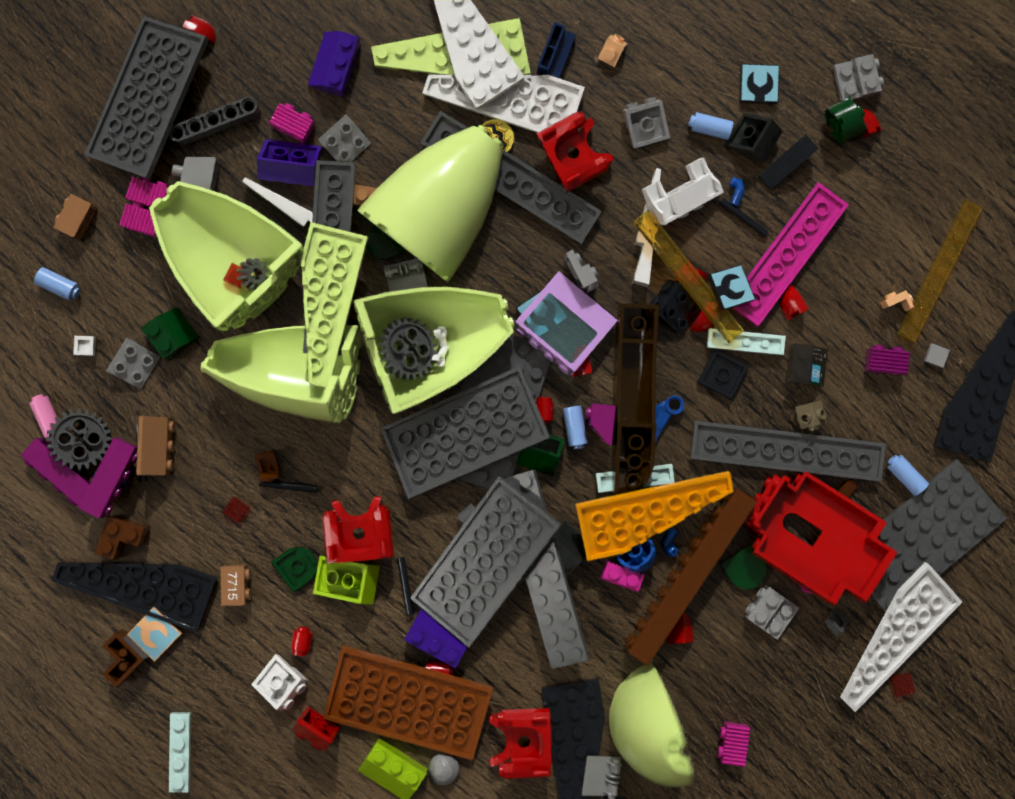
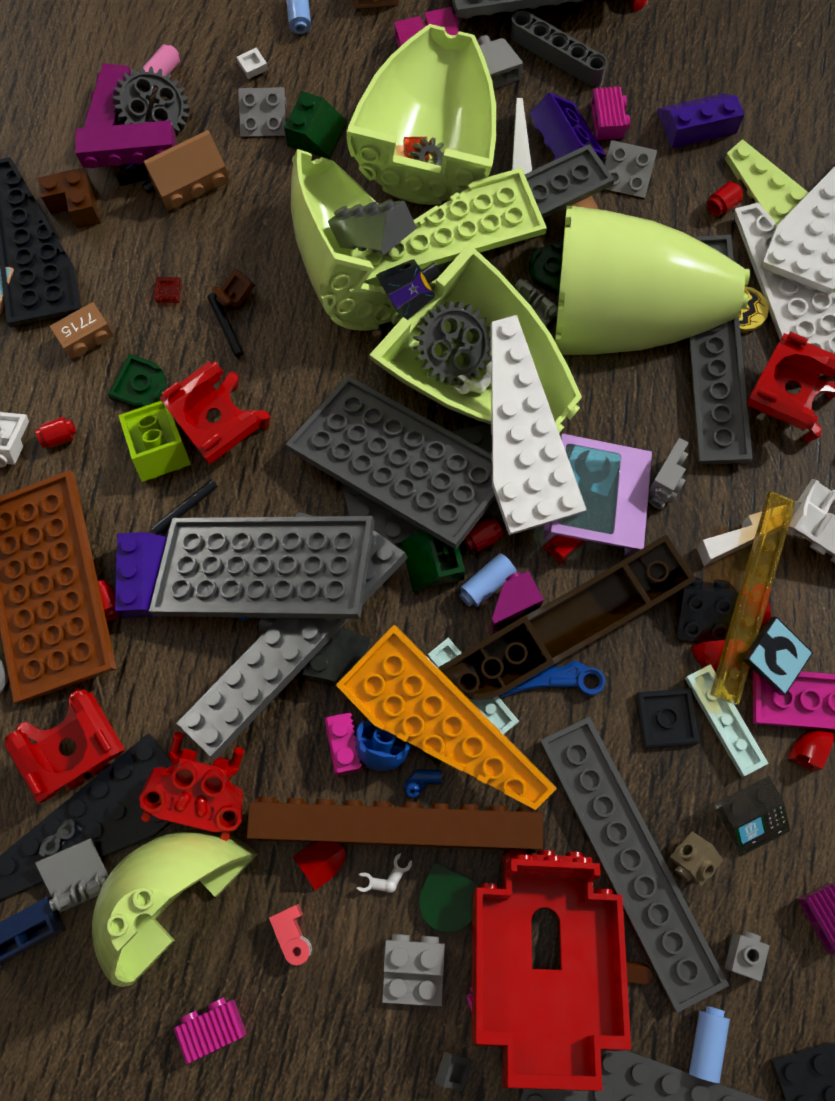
camera: 65 degrees right, 15 degrees down
(295, 352) = (372, 226): none -> dark grey wedge
(356, 357) = (409, 286): none -> torso
(409, 92) = (725, 199): none -> red brick
(521, 355) = (527, 453): none -> white wing
(575, 780) = (52, 843): none -> dark grey piece
(603, 681) = (195, 791): none -> red piece
(707, 670) = (293, 944): none -> coral leg
(714, 600) = (388, 885): none -> white arm
(877, 422) = (747, 955): none -> light grey brick

